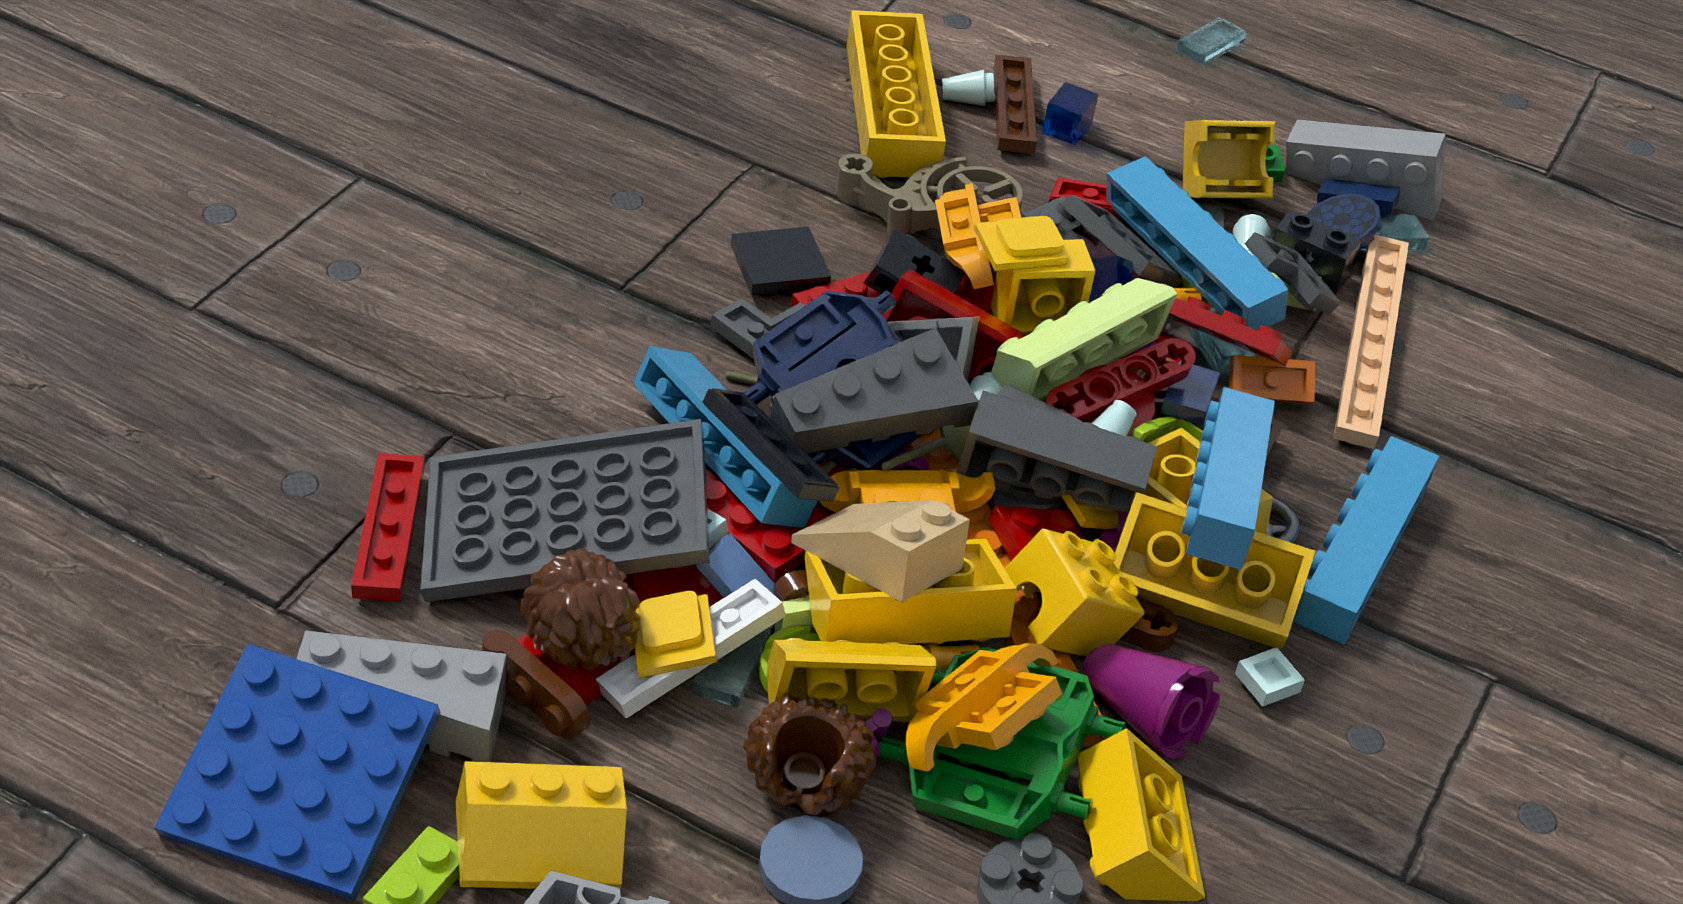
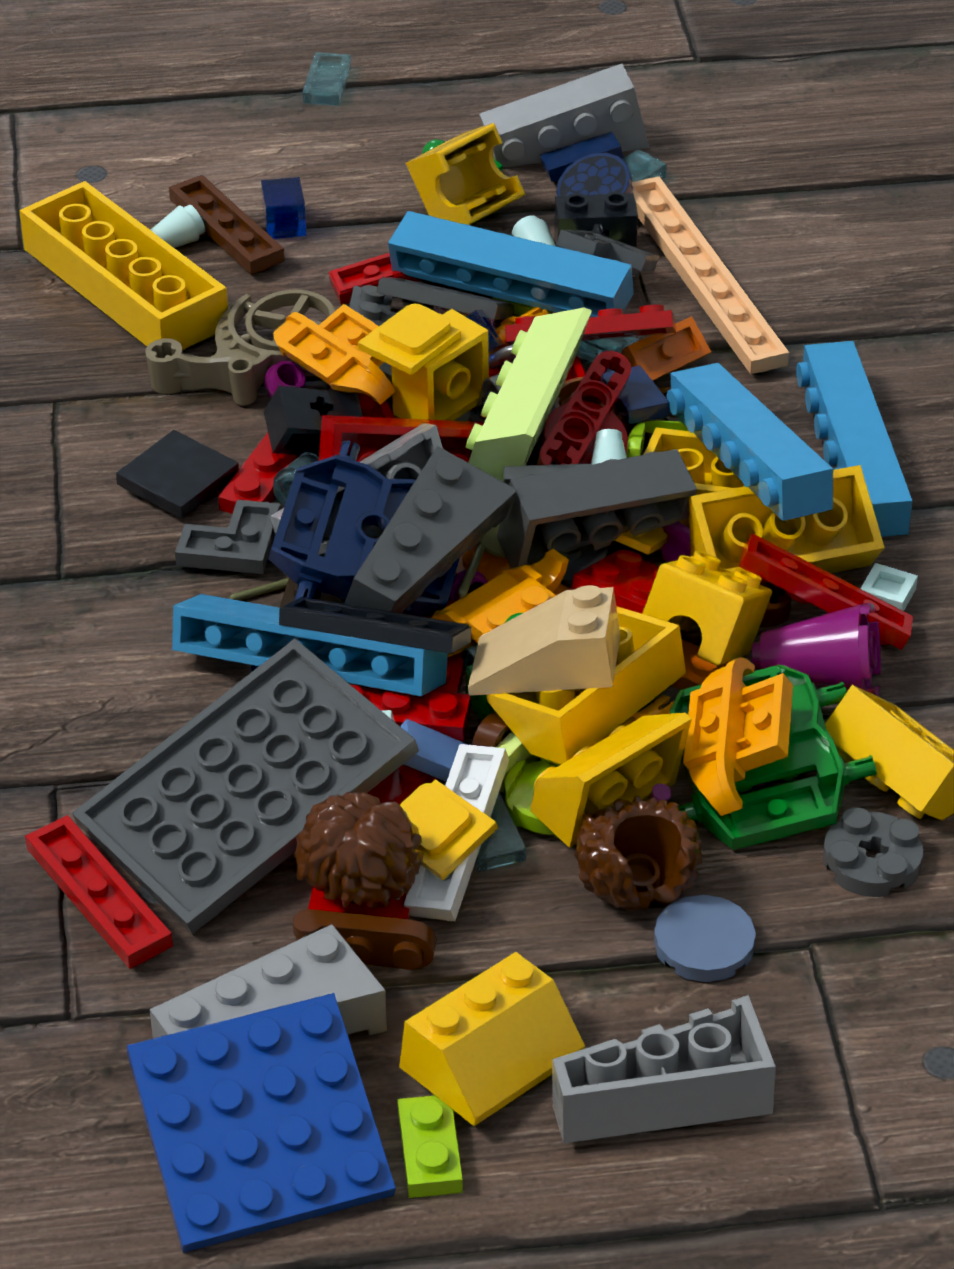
camera: 30 degrees left, 0 degrees up
(929, 235) = (283, 374): none -> magenta plate
(1197, 640) = (816, 586): none -> red plate

